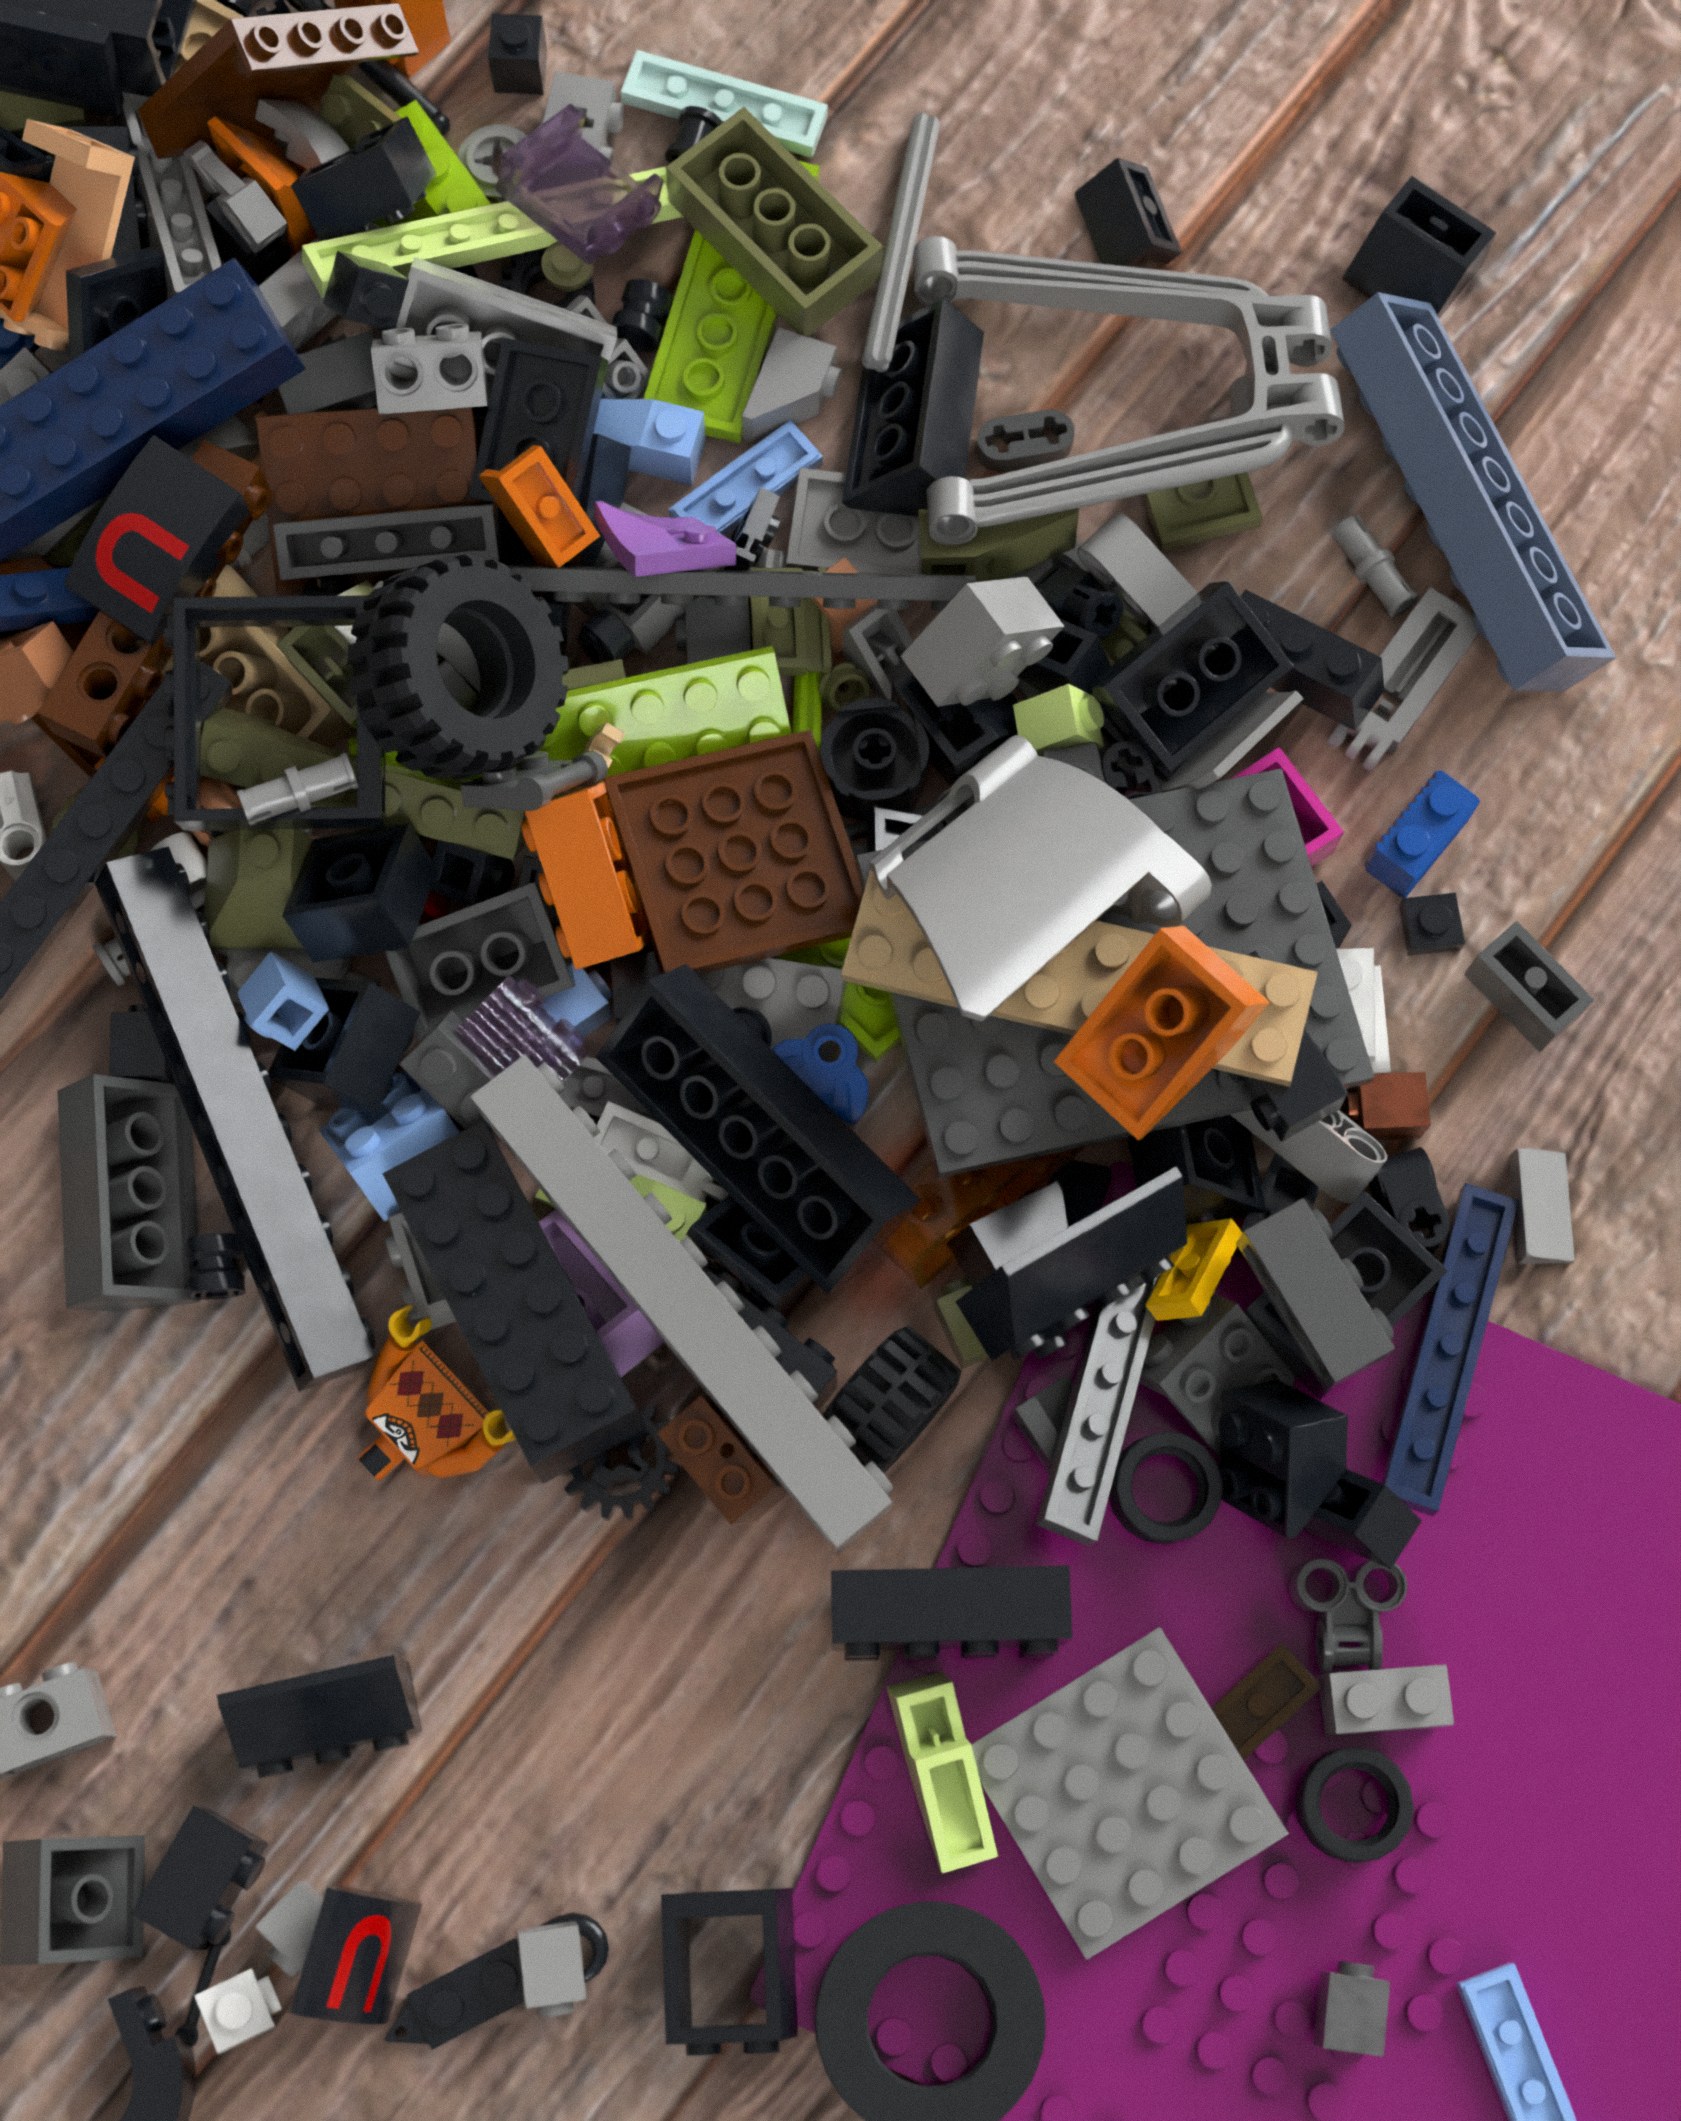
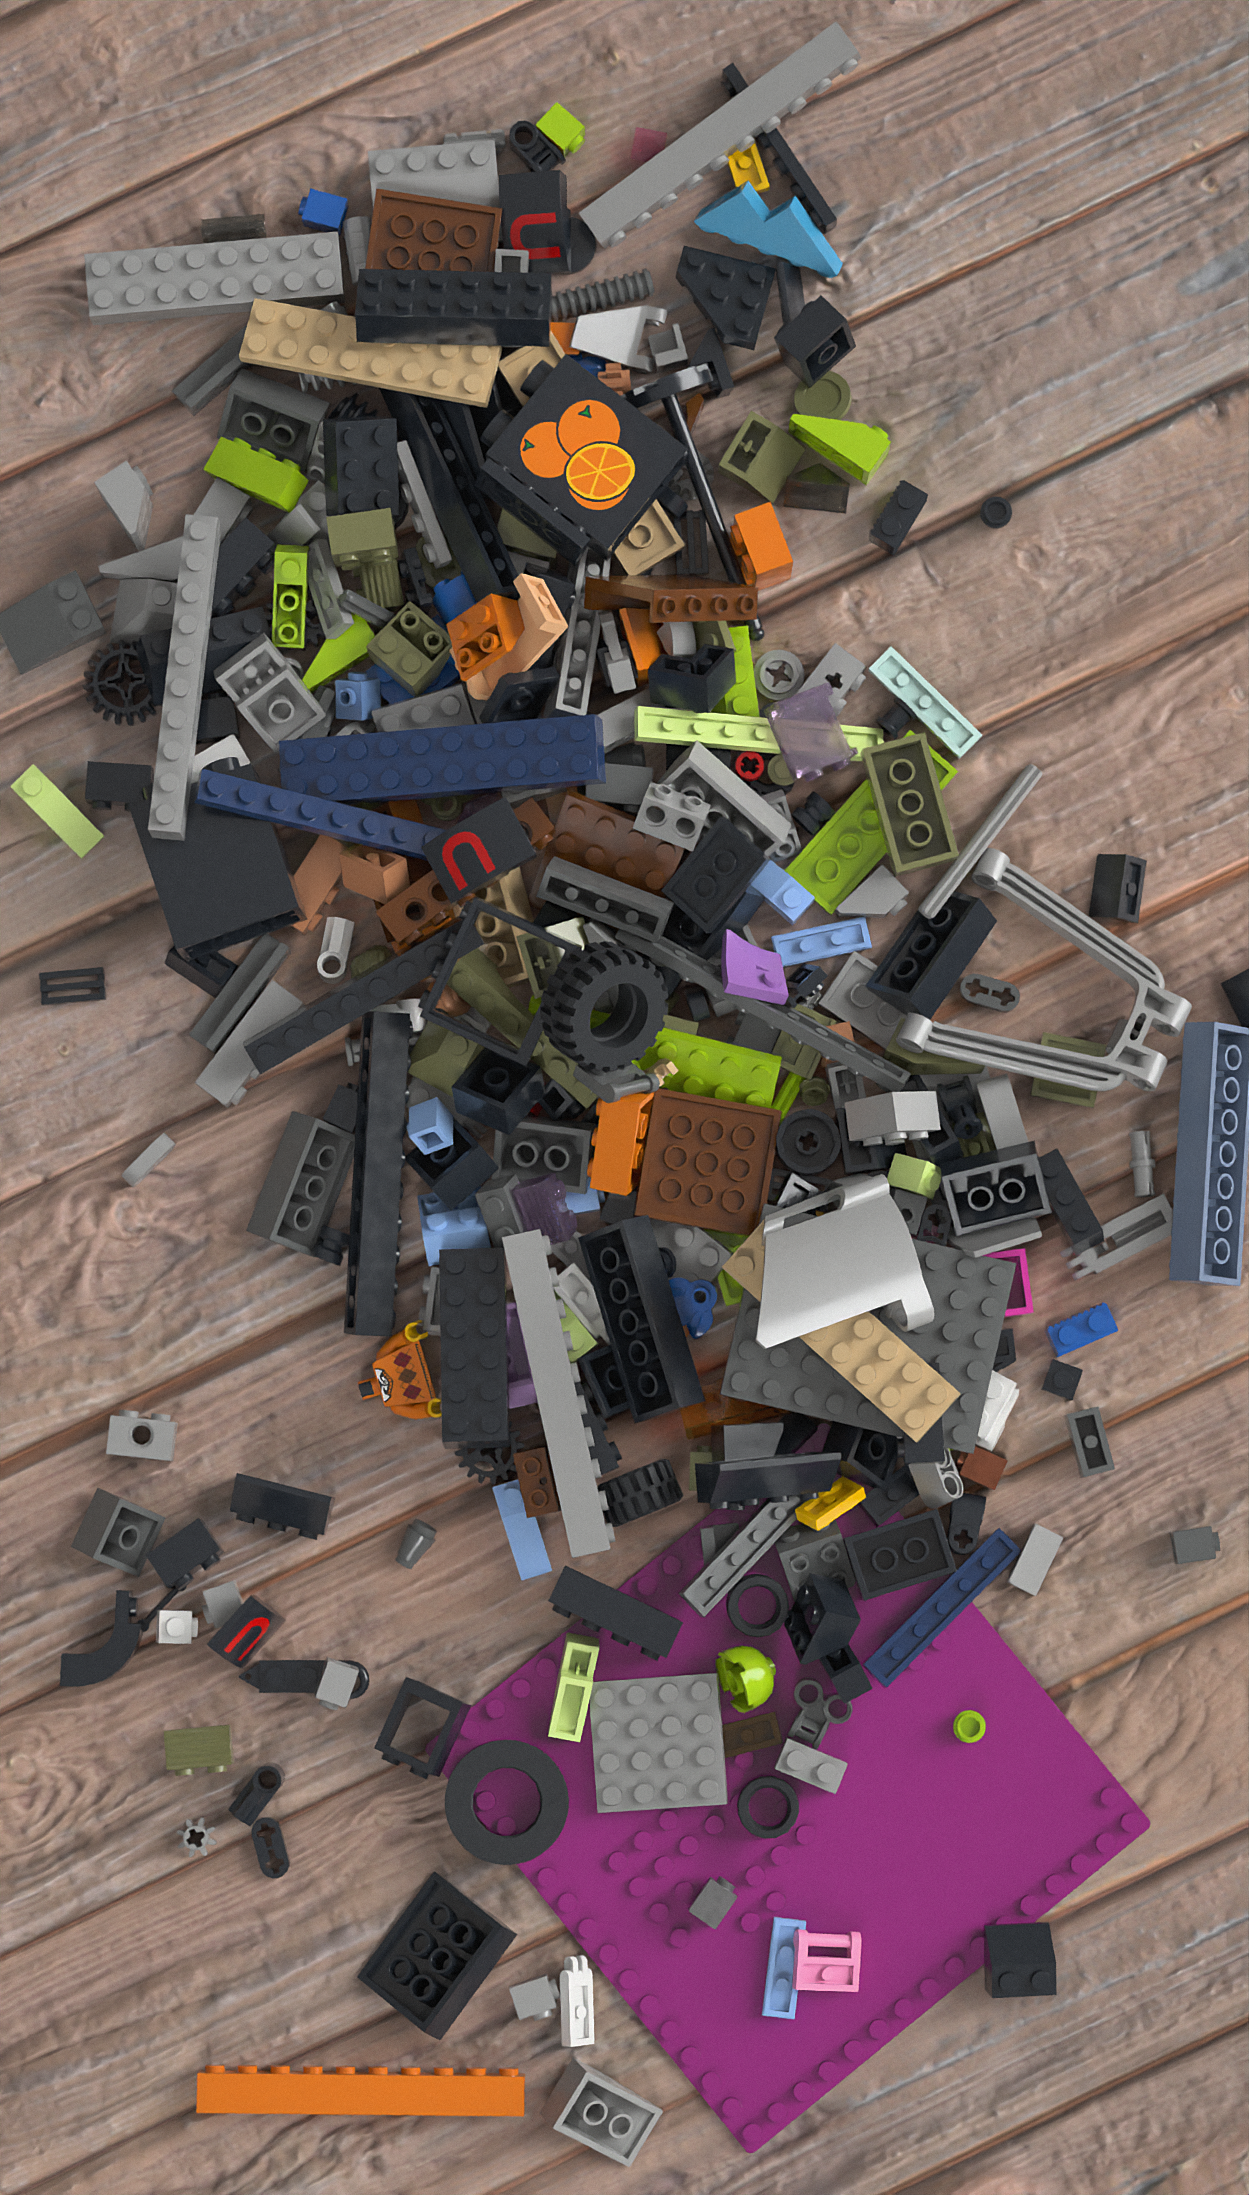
camera: 30 degrees right, 10 degrees up
(297, 789) = (490, 1033): light grey pin -> none
(365, 291) = (658, 755): black brick -> none
(513, 268) = (750, 756): none -> red bush
(517, 54) = (821, 615): black brick -> none
(540, 508) = (695, 925): orange panel -> none
(572, 1668) = (416, 1541): none -> dark grey cone
(732, 1559) = (521, 1531): none -> light blue slope
(1160, 1029) = (862, 1385): orange slope -> none
(1207, 1609) = (746, 1675): none -> lime cylinder
(1316, 1293) = (880, 1550): dark grey brick -> none
(1591, 1511) = (969, 1726): none -> lime plate
(1593, 2031) = (826, 1972): none -> bright pink plate

